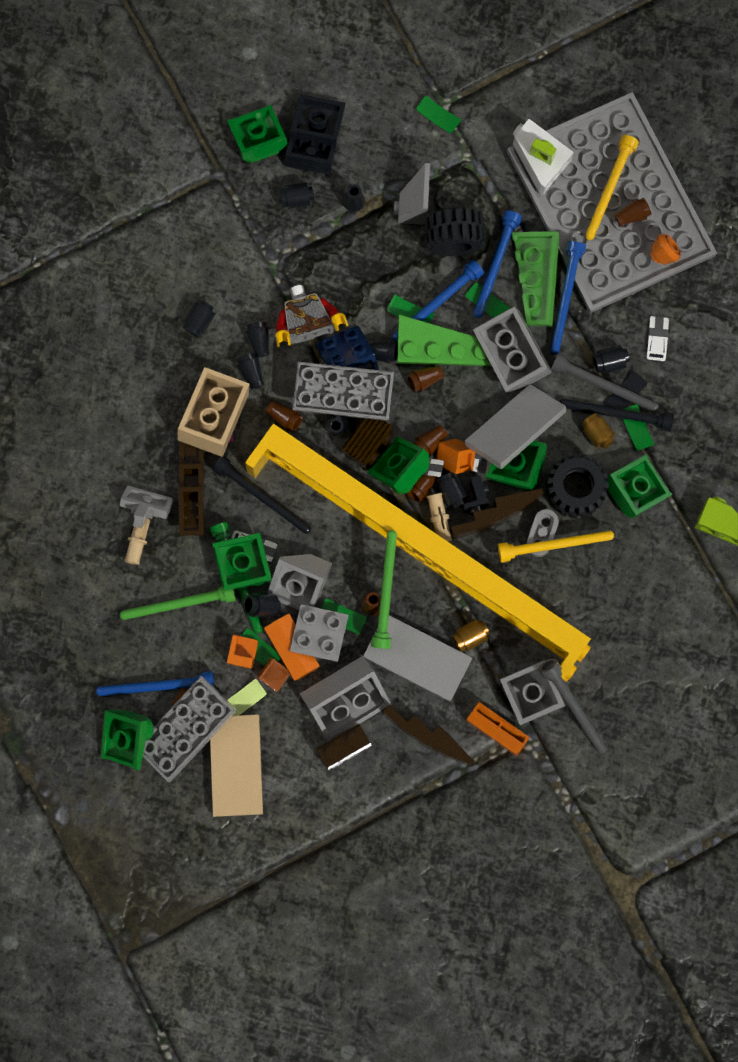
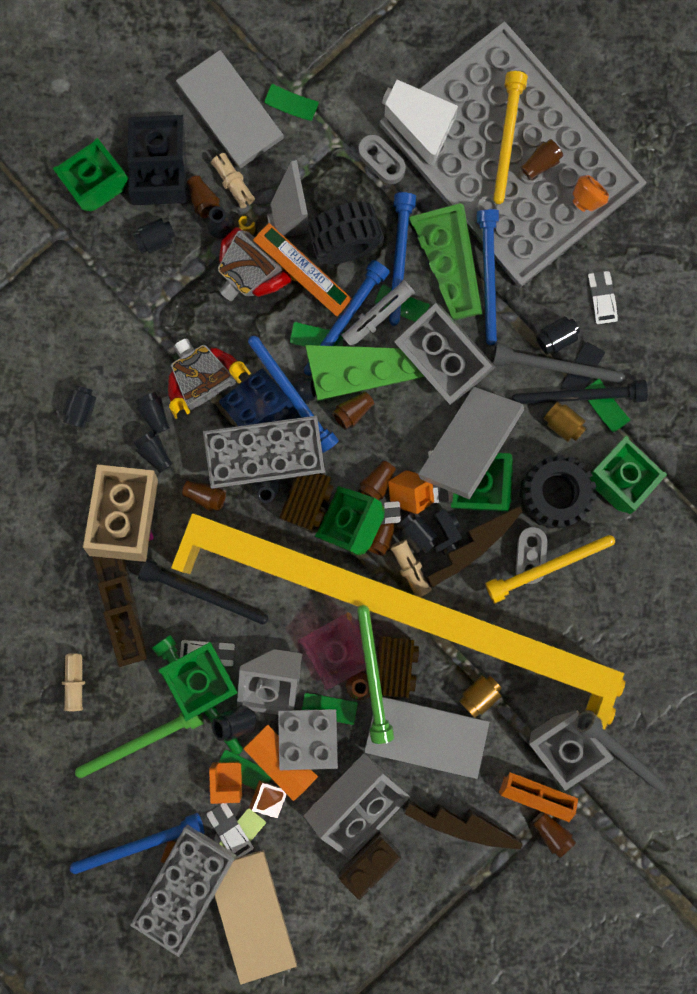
camera: 10 degrees left, 5 degrees up
(125, 737) = (115, 919): green slope -> none
(145, 504) = (71, 640): light grey hinge -> none
(235, 693) = (229, 830): none -> sticker
(344, 173) = (202, 196): none -> reddish brown cone
(360, 567) = (336, 650): none -> clear pink slope
(370, 239) = (248, 265): none -> torso
(373, 166) = (232, 180): none -> tan pin
(385, 108) = (230, 109): none -> light grey tile
(397, 395) = (327, 438): none -> blue piece
(406, 593) = (395, 666): none -> dark brown brick
(412, 253) = (302, 269): none -> tile
(489, 292) = (403, 292): none -> light grey pin
(501, 181) = (383, 160): none -> light grey plate
(503, 765) = (554, 835): none -> reddish brown cone
(543, 151) = (423, 112): lime plate -> none

